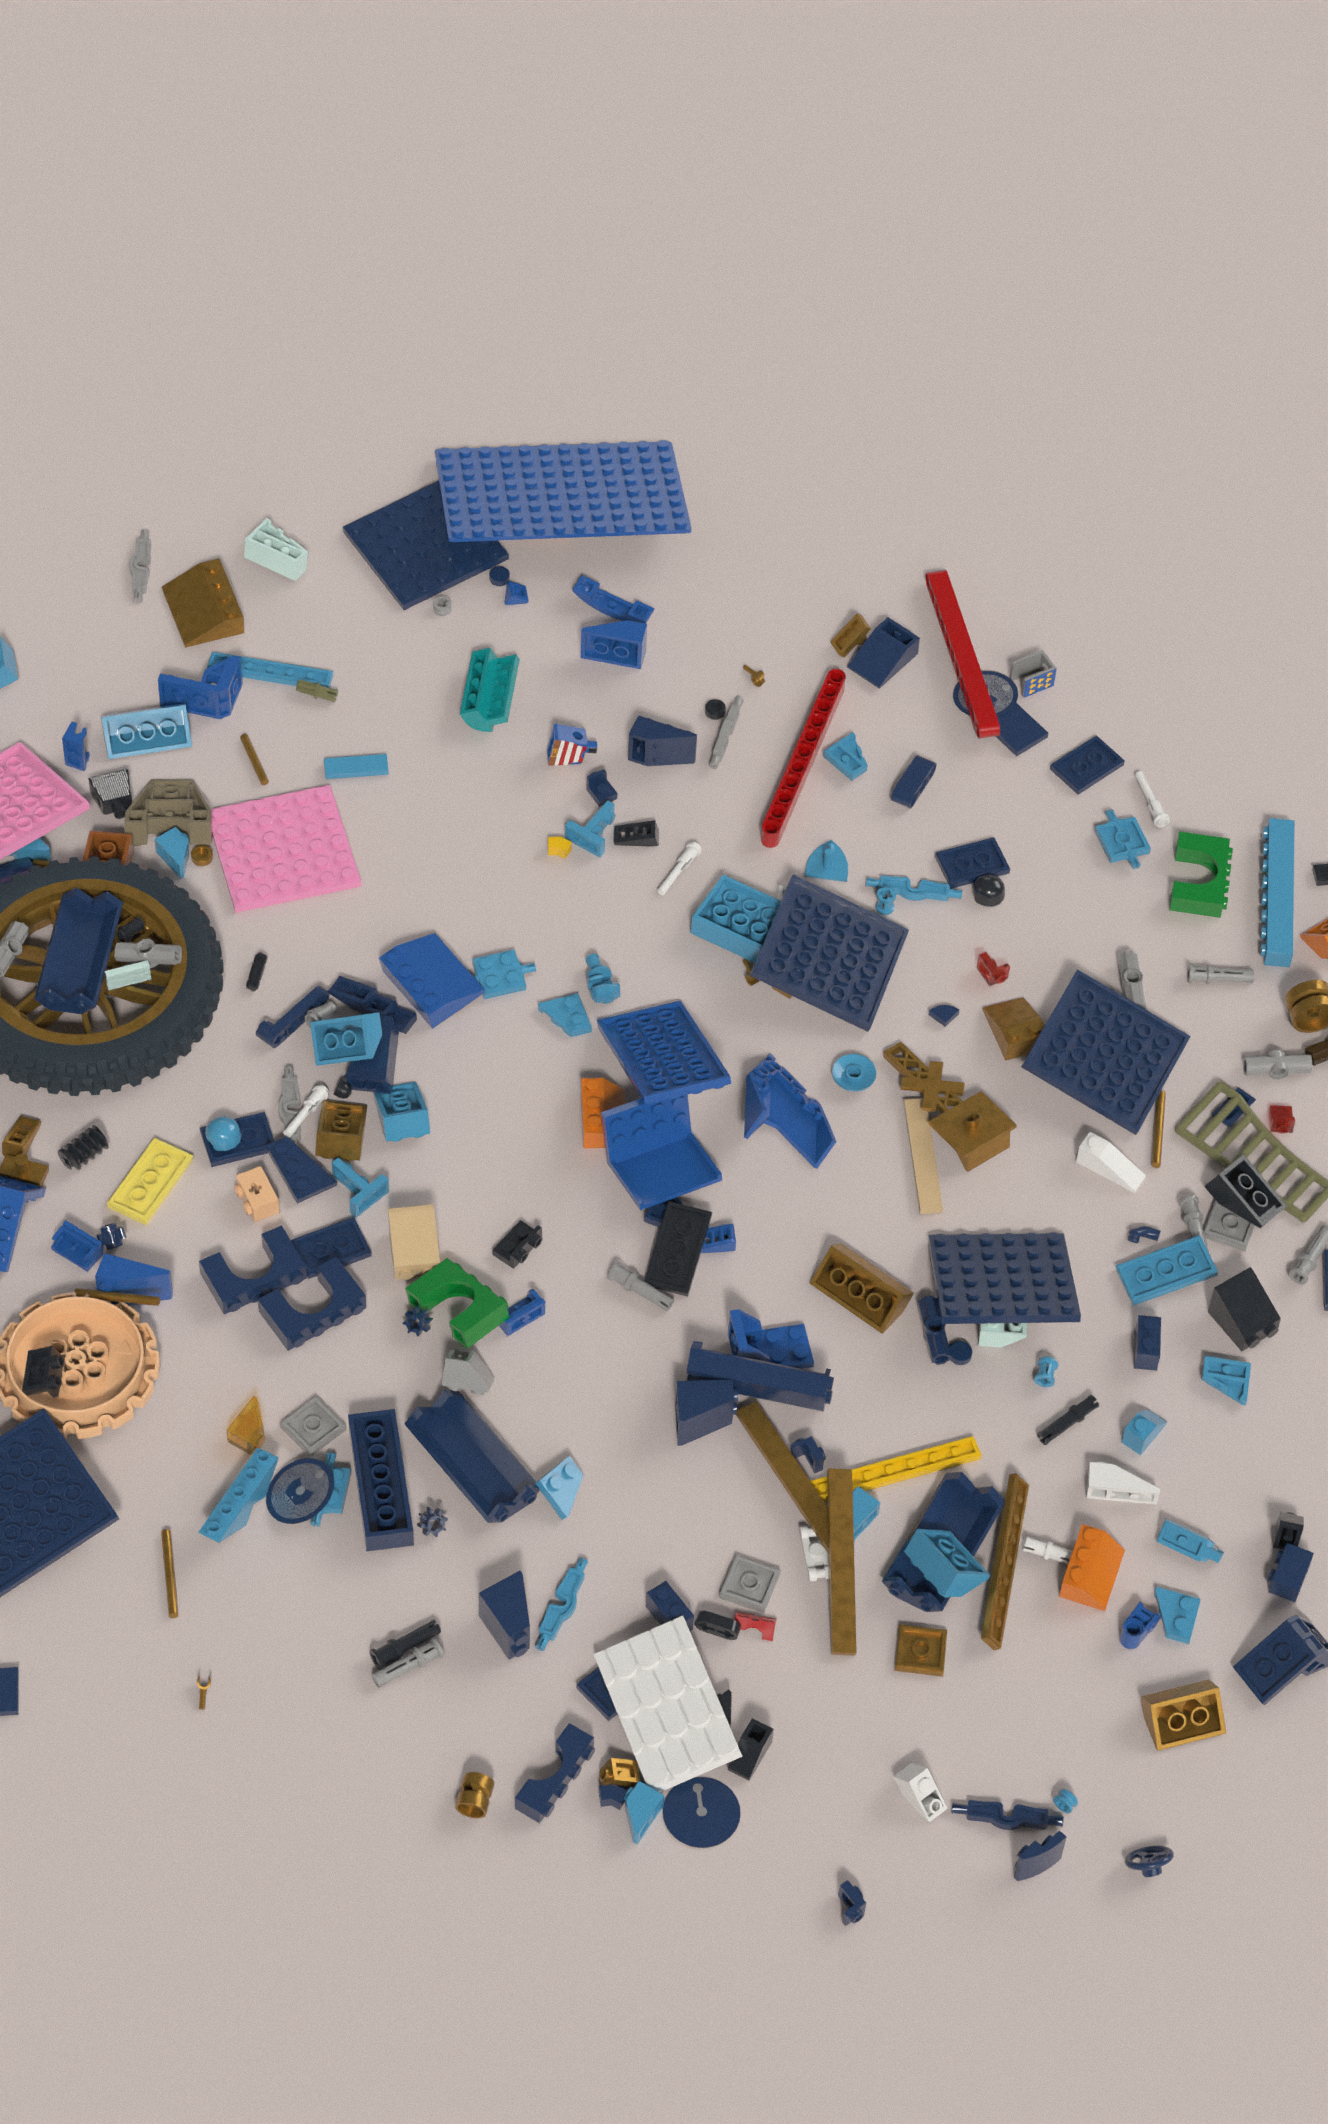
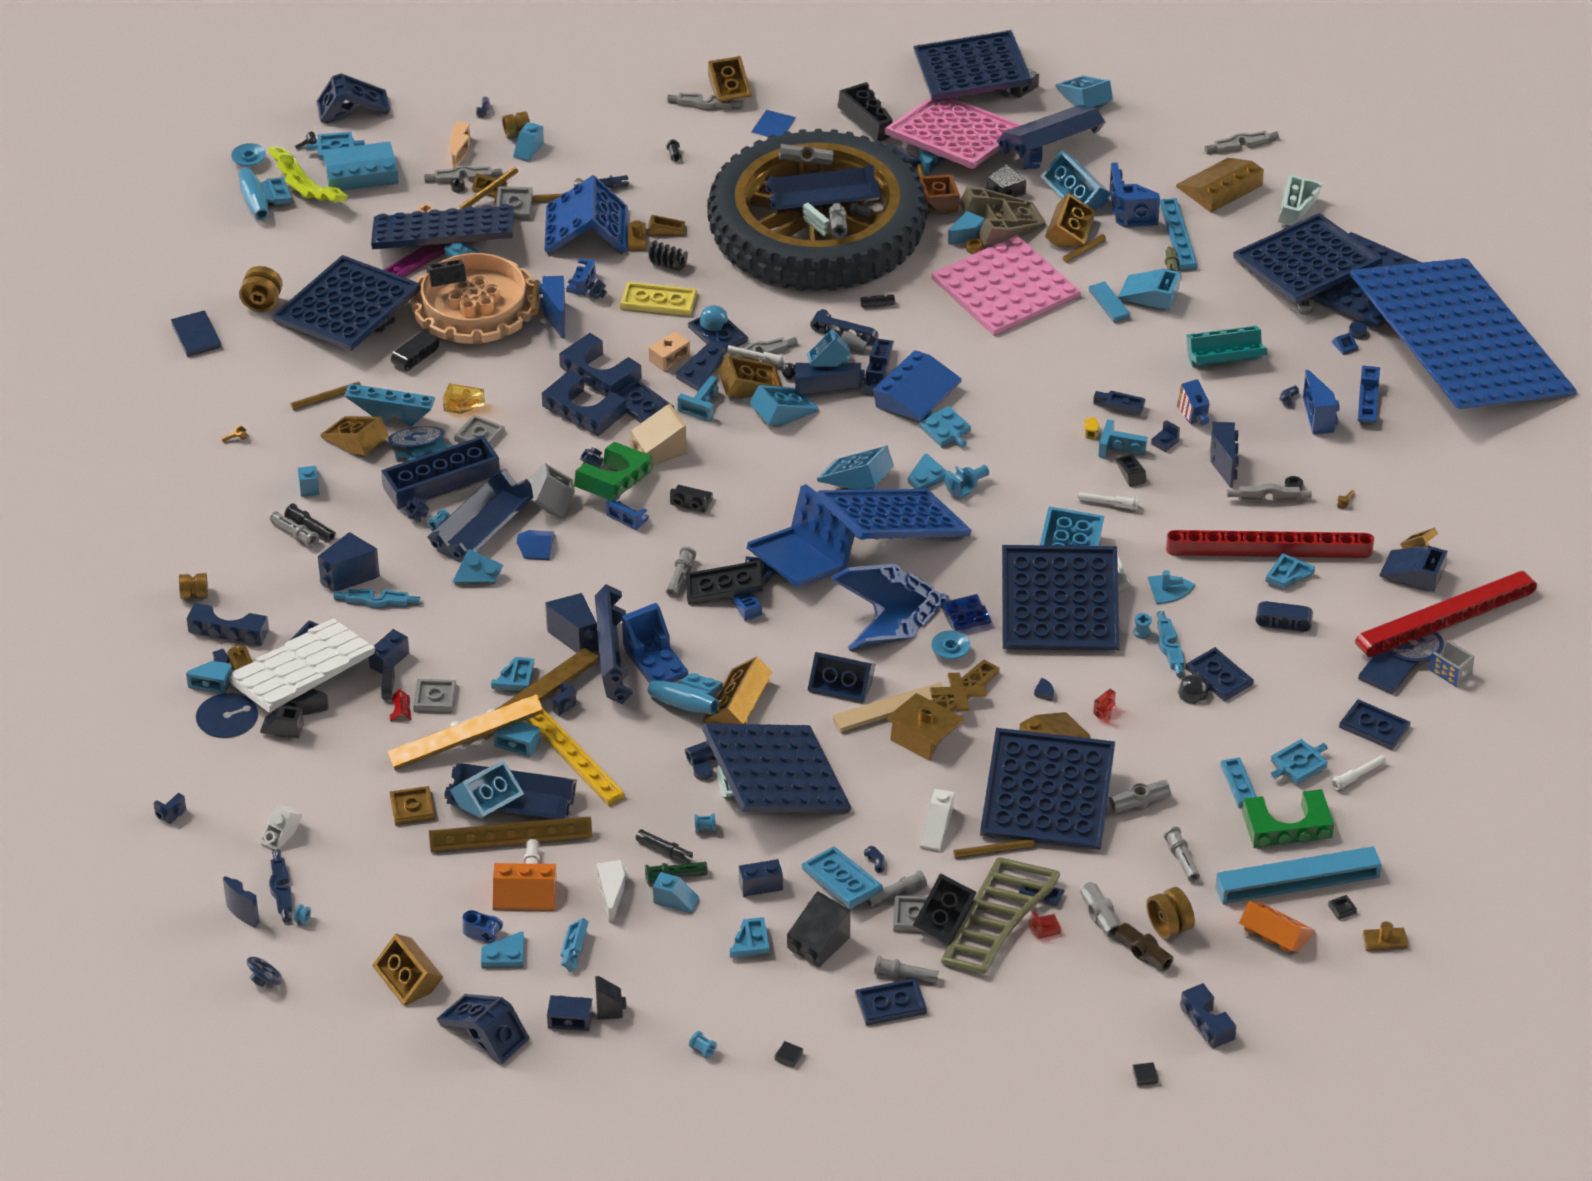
camera: 75 degrees right, 10 degrees down
(59, 717) = (1050, 129): none -> dark blue panel
(135, 1455) = (415, 350): none -> black beam
(214, 755) = (1070, 222): none -> pearl gold slope
(262, 1556) = (356, 434): none -> pearl gold slope
(322, 1625) = (308, 481): none -> dark azure slope
(360, 720) = (1152, 288): none -> dark azure slope
(379, 574) = (1307, 258): none -> dark blue plate
(458, 1504) = (434, 522): none -> dark azure bush
(529, 808) = (1120, 401): none -> dark blue hinge
(533, 1415) = (535, 544): none -> blue slope
(558, 1068) = (859, 470): none -> dark azure slope
(577, 668) = (1287, 393): none -> dark blue arm
(750, 1492) = (516, 675): none -> dark azure wing
(804, 1046) = (965, 612): none -> clear blue slope
(847, 1330) = (691, 694): none -> dark azure plate
(866, 1183) = (841, 676): none -> dark blue slope
(1107, 1428) = (679, 870): none -> dark green pin
(1131, 898) = (1237, 780): none -> dark azure tile

